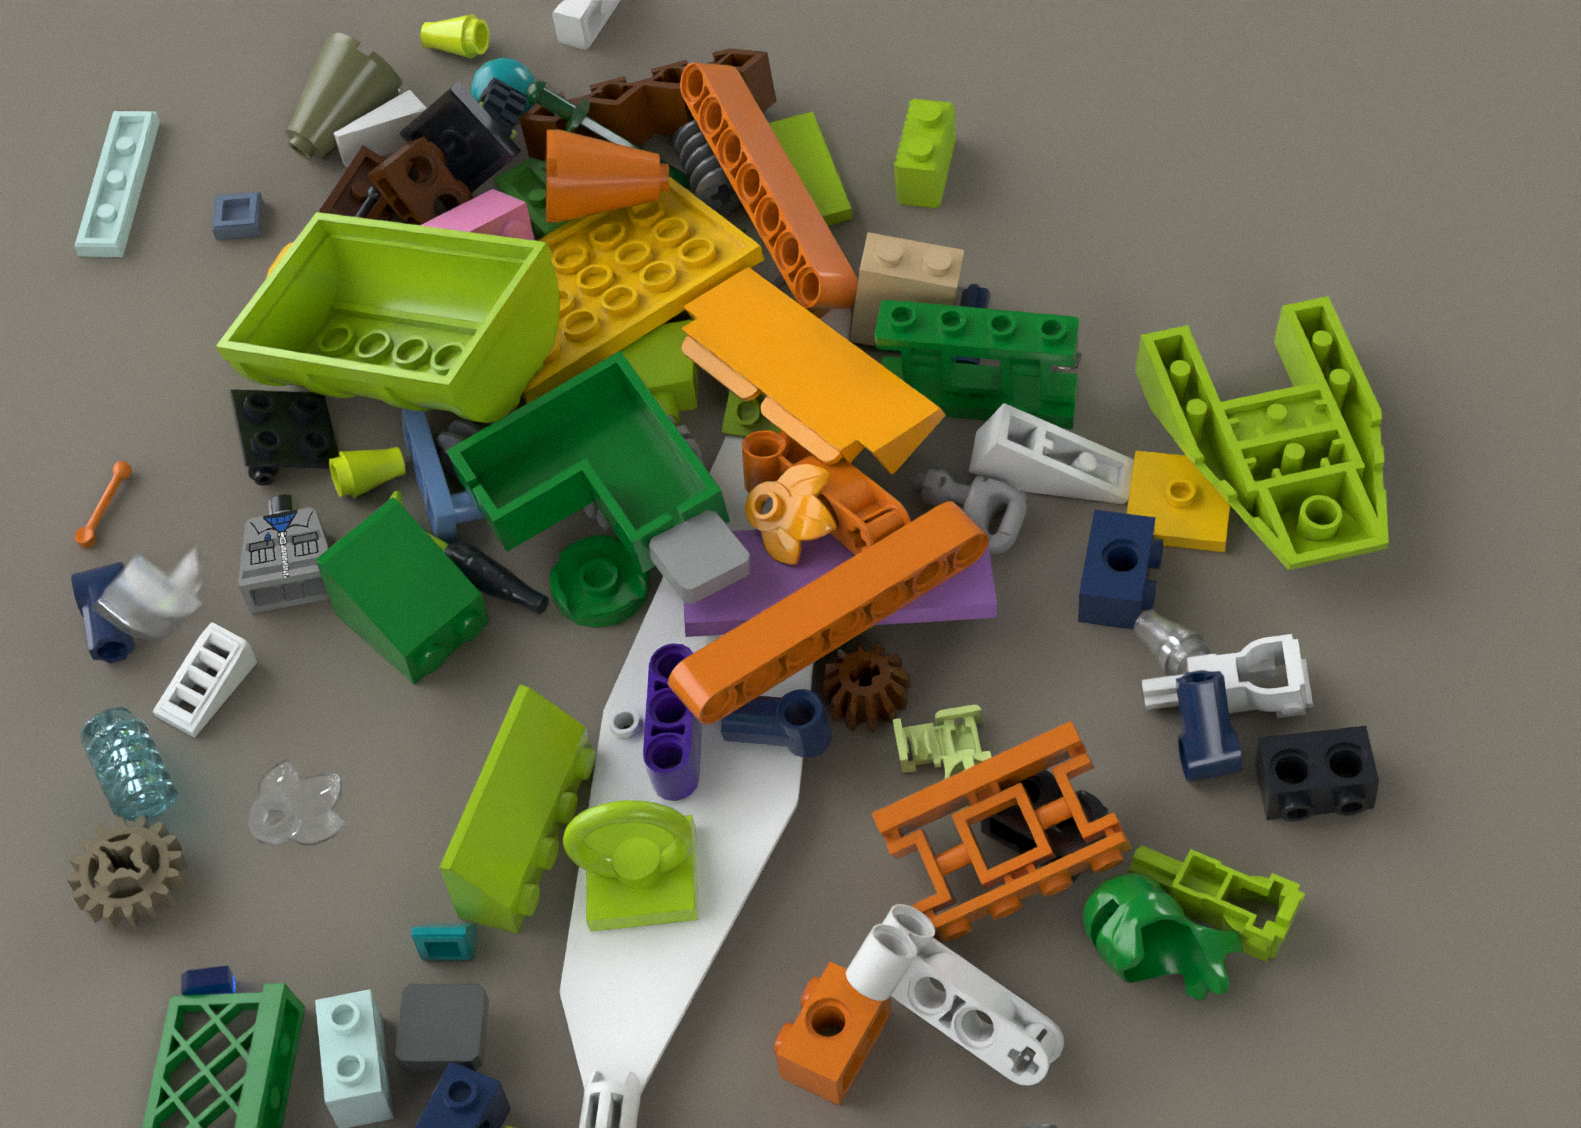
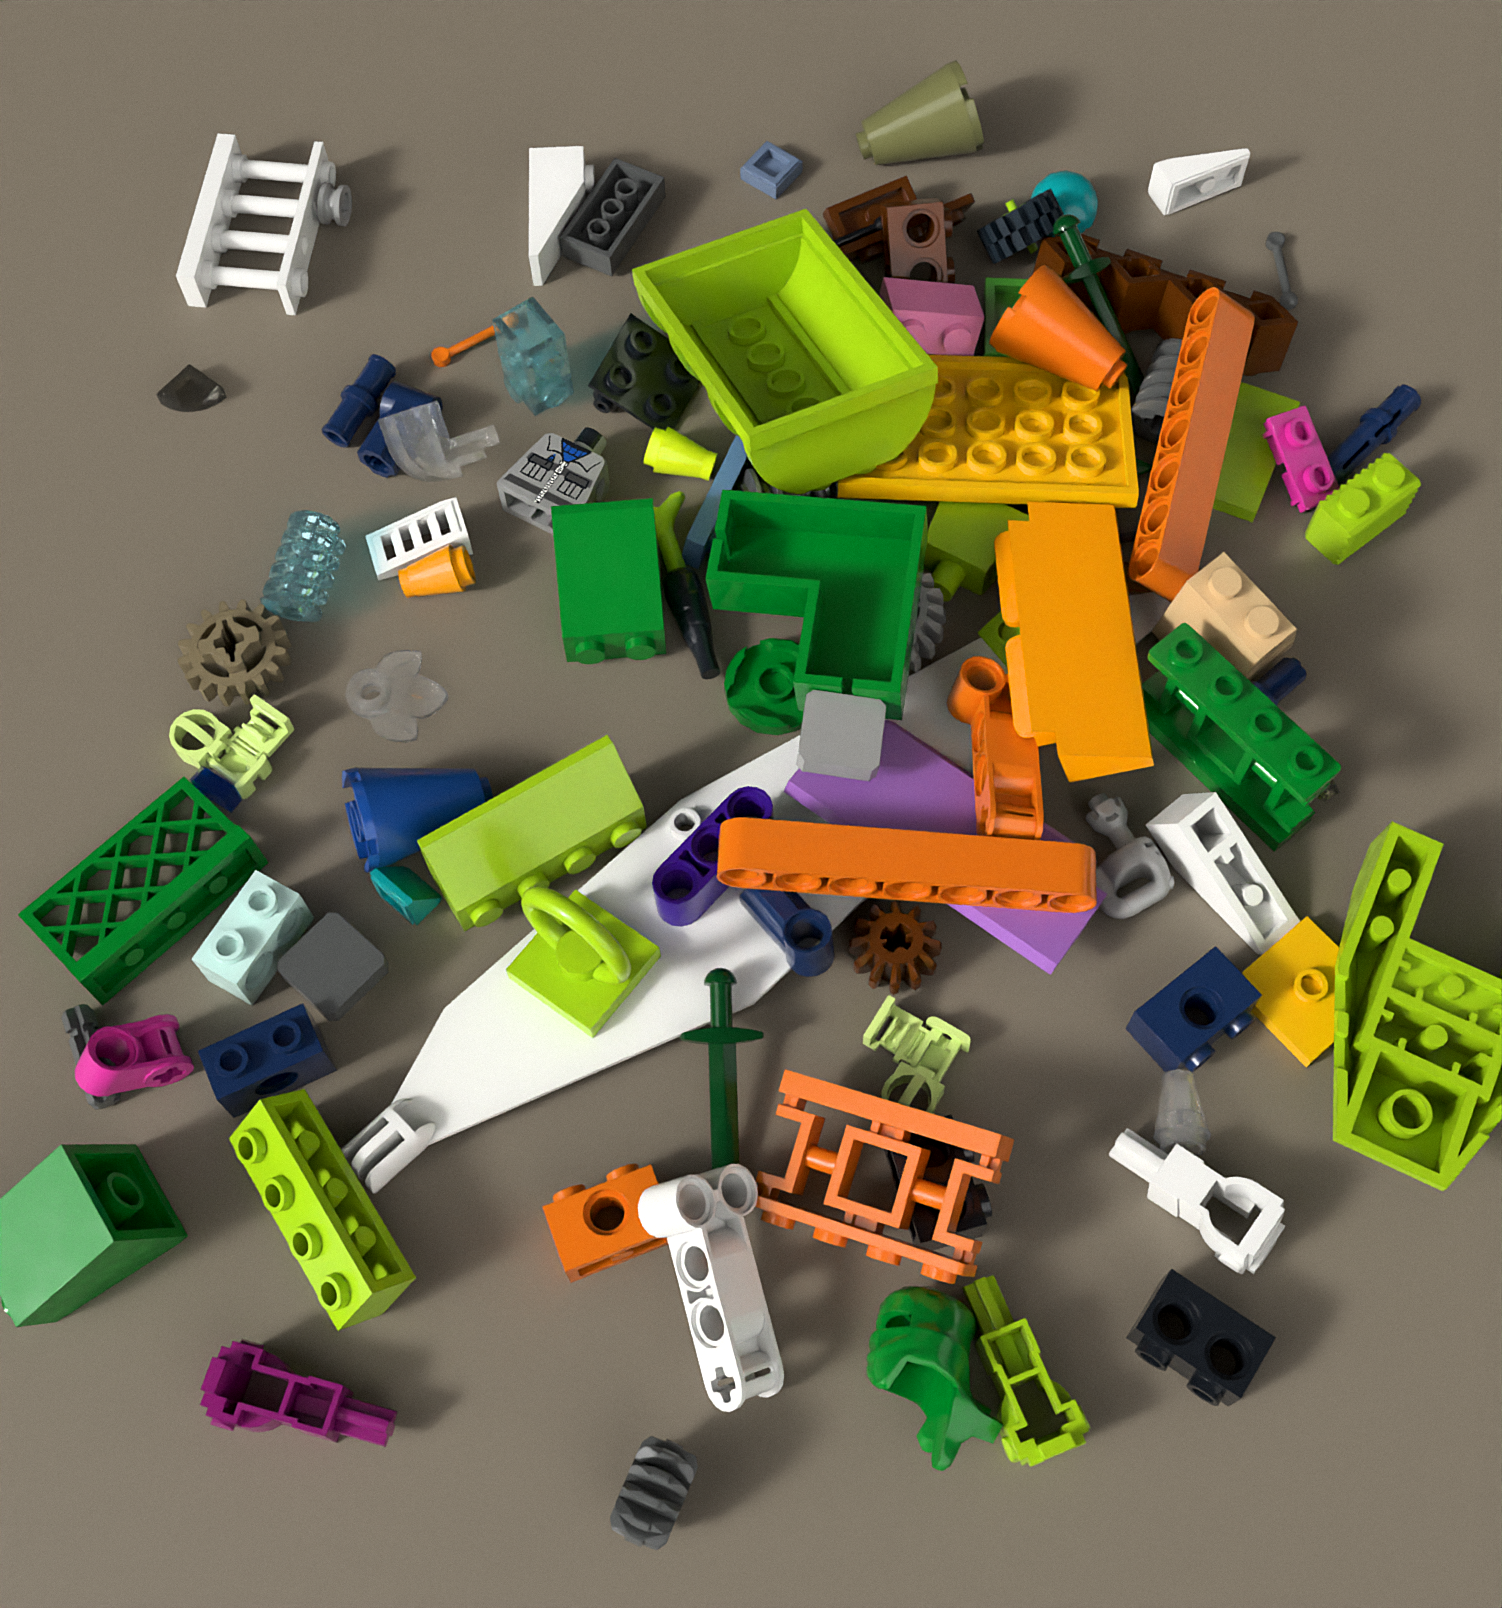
camera: 35 degrees right, 10 degrees up
(48, 615) = (359, 401): none -> dark blue pin
(74, 349) = (556, 192): none -> white slope
(117, 184) = (707, 80): light aqua tile -> none
(138, 334) = (613, 217): none -> dark grey piece
(180, 474) = (533, 357): none -> clear light blue brick
(203, 939) = (242, 750): none -> yellowish green piece
(246, 691) = (438, 573): none -> light orange cone
(379, 128) = (939, 173): white slope -> none
(390, 875) = (404, 805): none -> blue cone
(459, 35) = (1068, 132): neon yellow cone -> none
(465, 134) = (980, 224): black tile -> none
(690, 15) = (1275, 243): none -> dark grey hinge
(795, 512) = (952, 756): light orange plate -> none
(800, 843) = (722, 1066): none -> dark green sword
(835, 136) = (1298, 446): none -> dark pink hinge
(883, 92) = (1375, 428): none -> dark blue pin
(1208, 740) = (1134, 1226): dark blue piece -> none

